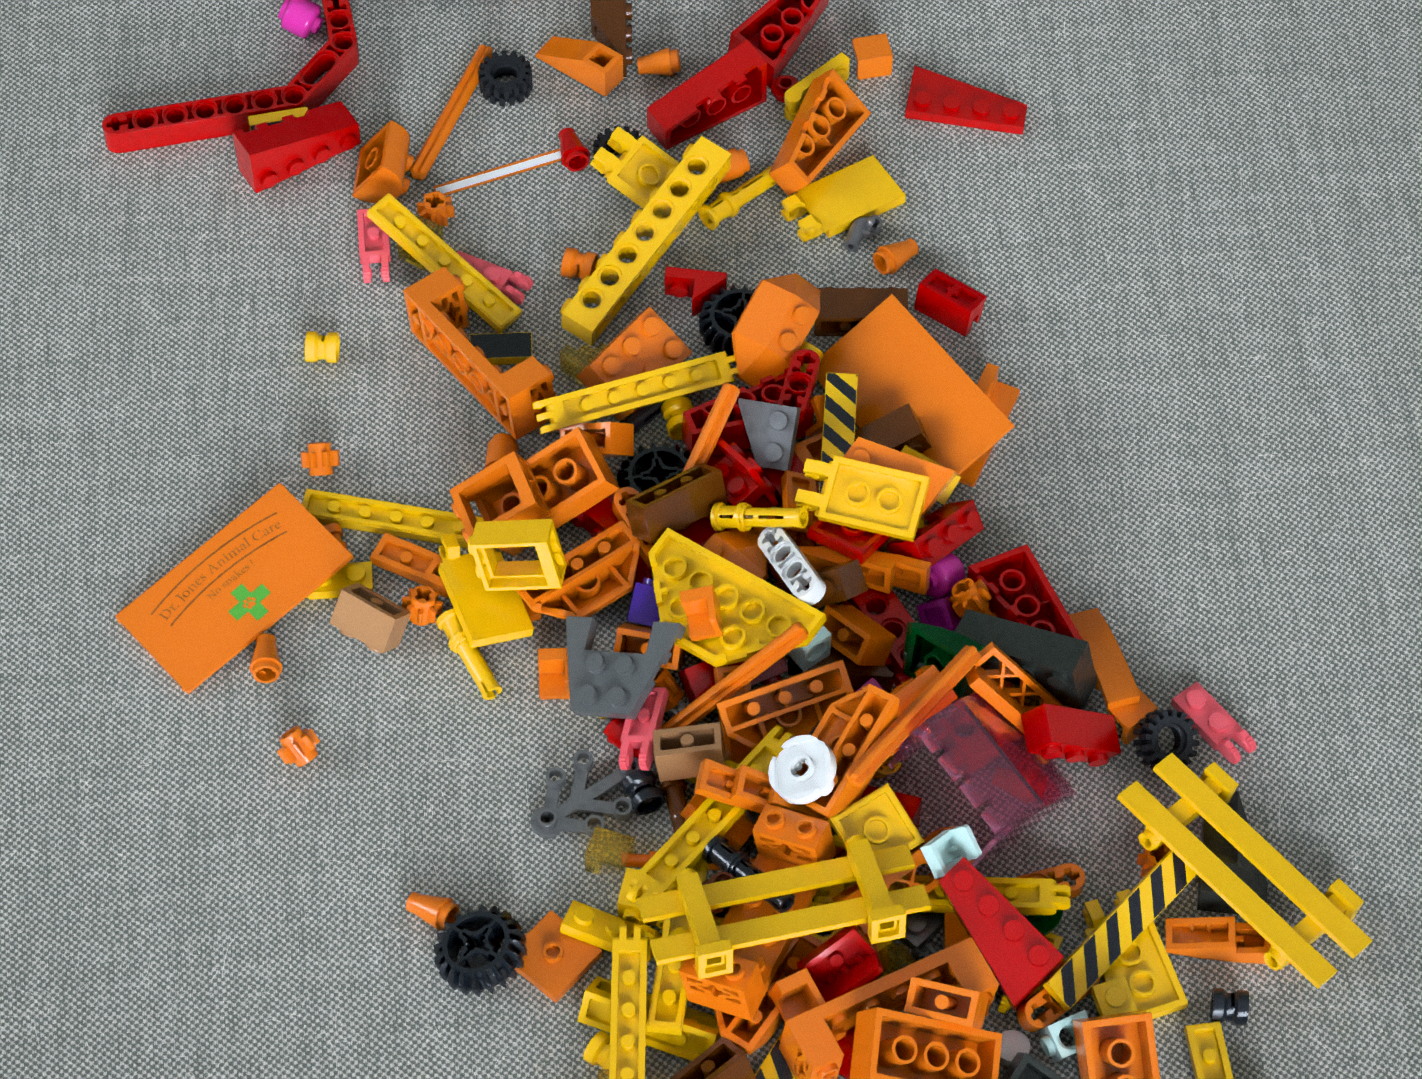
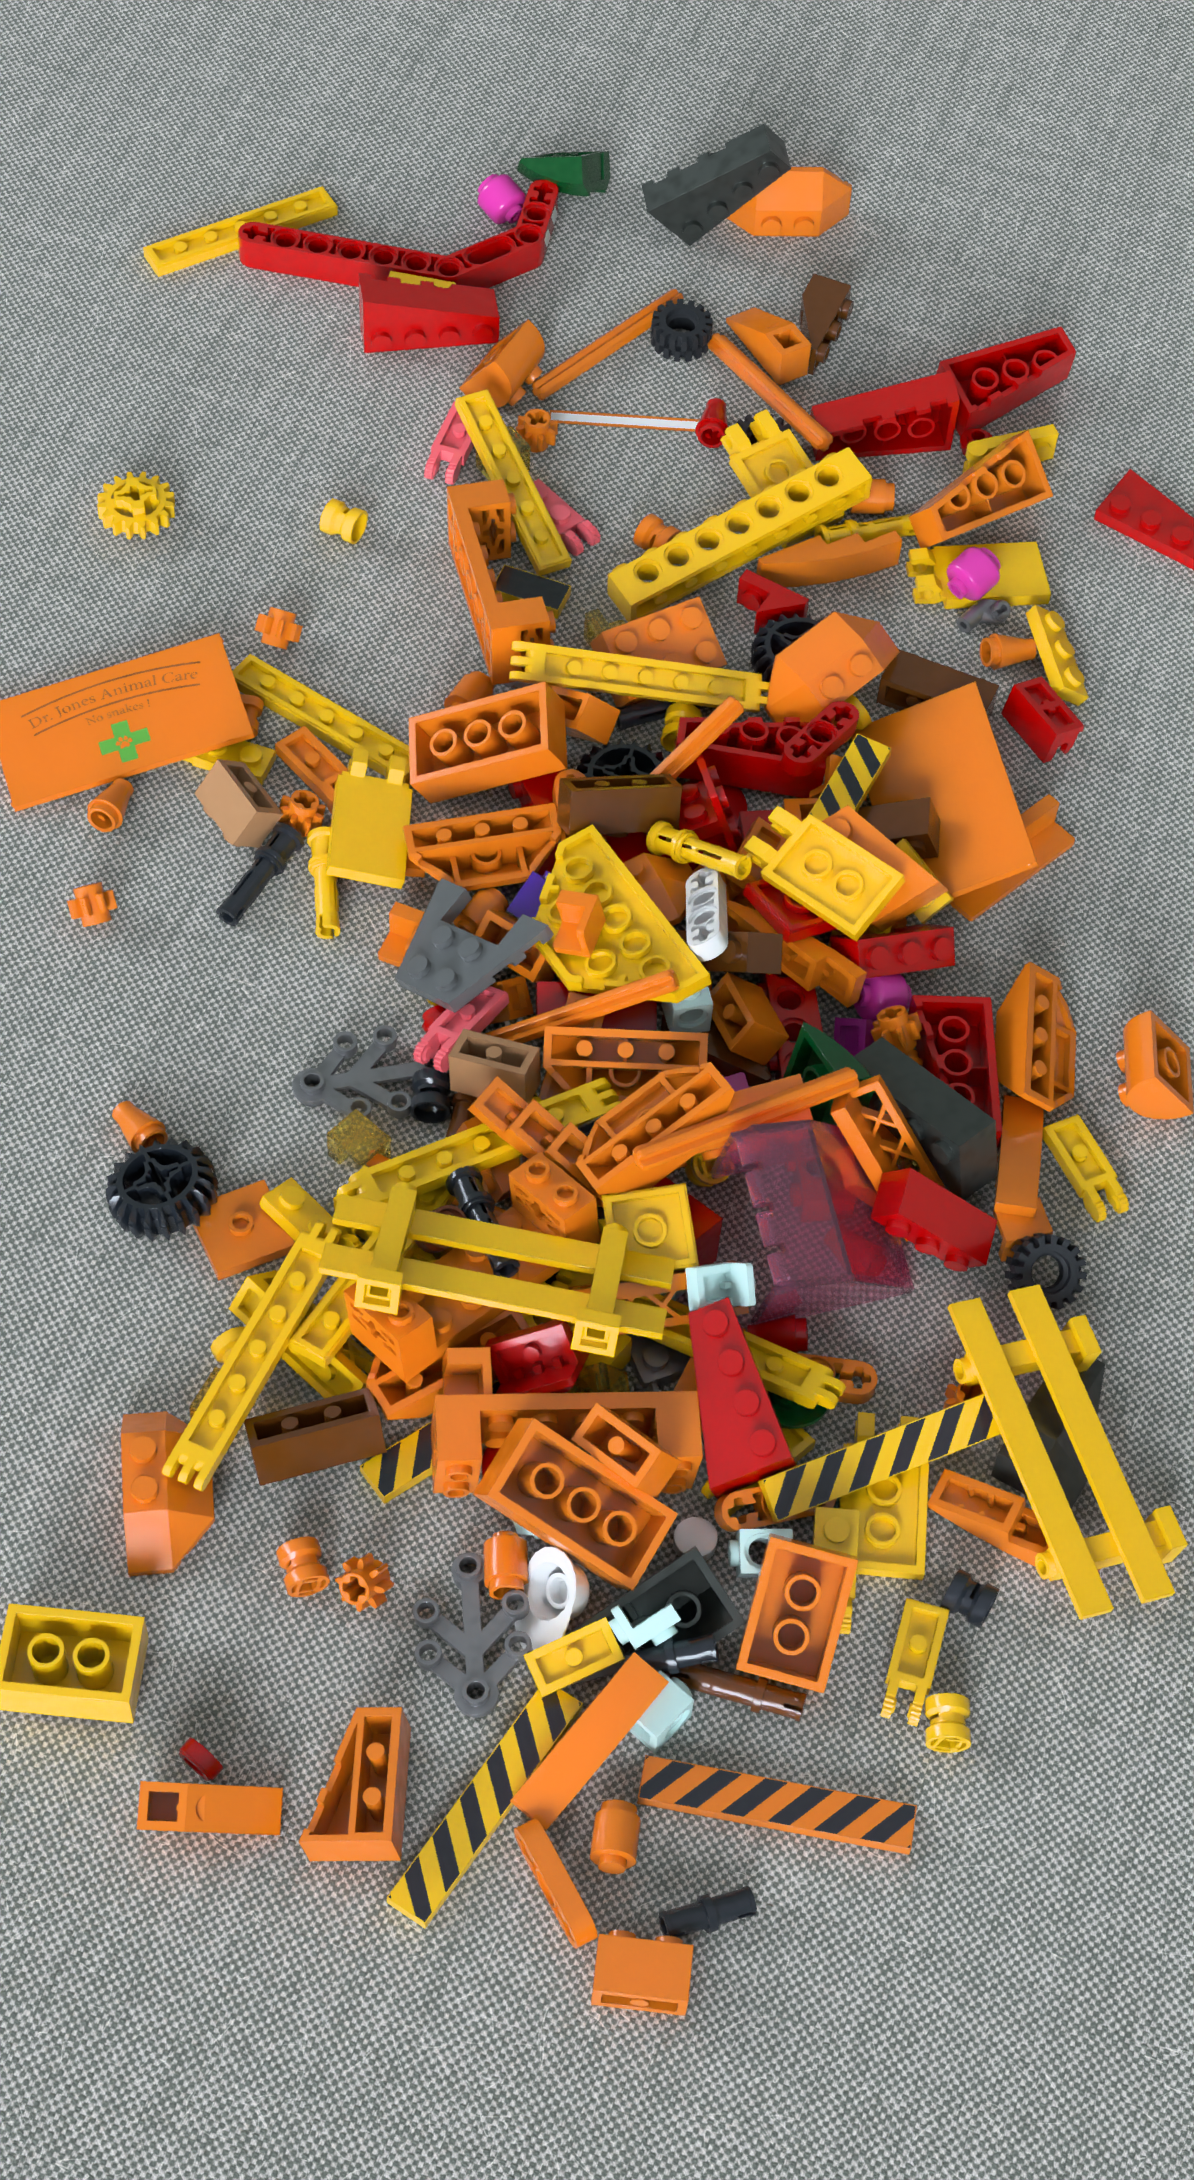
camera: 20 degrees right, 0 degrees up
(88, 130) = (223, 235): none -> yellow tile
(143, 398) = (136, 505): none -> yellow gear
(417, 655) = (269, 862): none -> black pin
(511, 465) = (434, 755): orange window -> none
(518, 575) = (449, 809): yellow window -> none
(605, 106) = (770, 392): none -> orange axle
(608, 621) = (481, 901): none -> orange brick
(660, 62) = (854, 371): orange cone -> none
(717, 237) = (821, 563): none -> orange slope
(771, 432) = (763, 772): flat silver wing -> none
(817, 779) = (604, 1142): white plate -> none
(843, 202) = (973, 573): none -> dark pink head
(873, 56) = (1087, 443): orange panel -> none
(935, 243) = (1057, 654): none -> yellow plate
(1001, 864) = (785, 1332): none -> red cone
(1072, 563) = (1036, 1040): none -> orange wedge
(1153, 646) = (1085, 1166): none -> yellow hinge
(1169, 551) = (1155, 1069): none -> orange brick
(1213, 722) = (1113, 1275): coral hinge -> none

